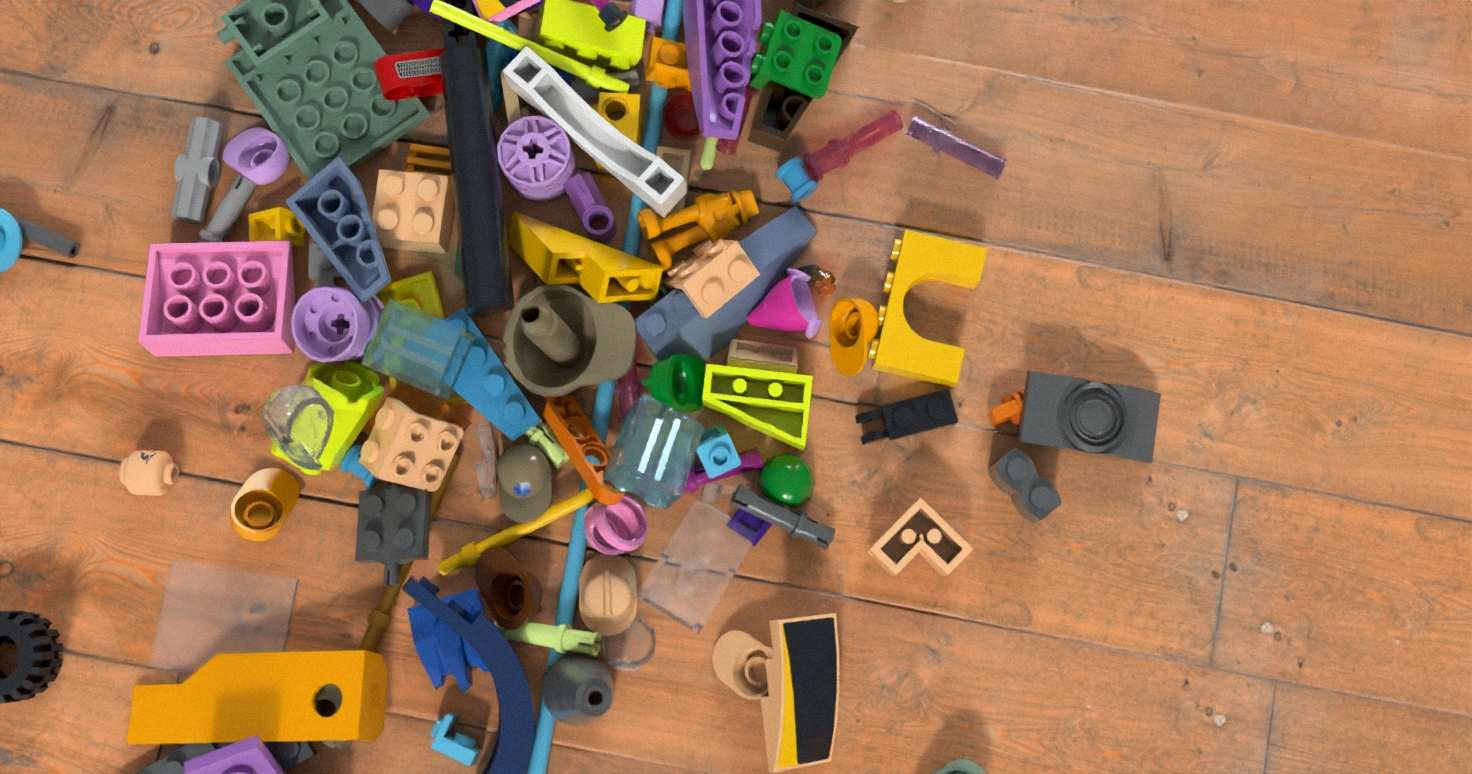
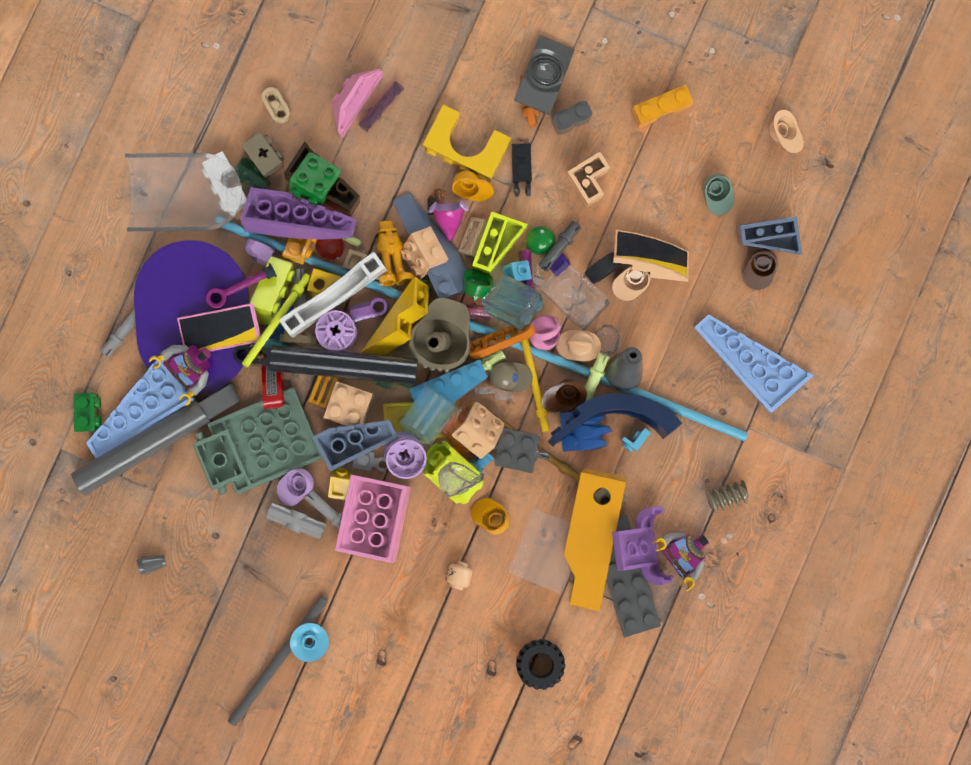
camera: 80 degrees left, 5 degrees up
(755, 602) = (602, 268): none -> black tyre
(796, 179) = (379, 196): dark azure bush -> none
(836, 148) = (368, 169): clear pink pin -> none
(957, 96) = (353, 97): none -> bright pink wedge
(1099, 657) = (669, 102): none -> light orange arch

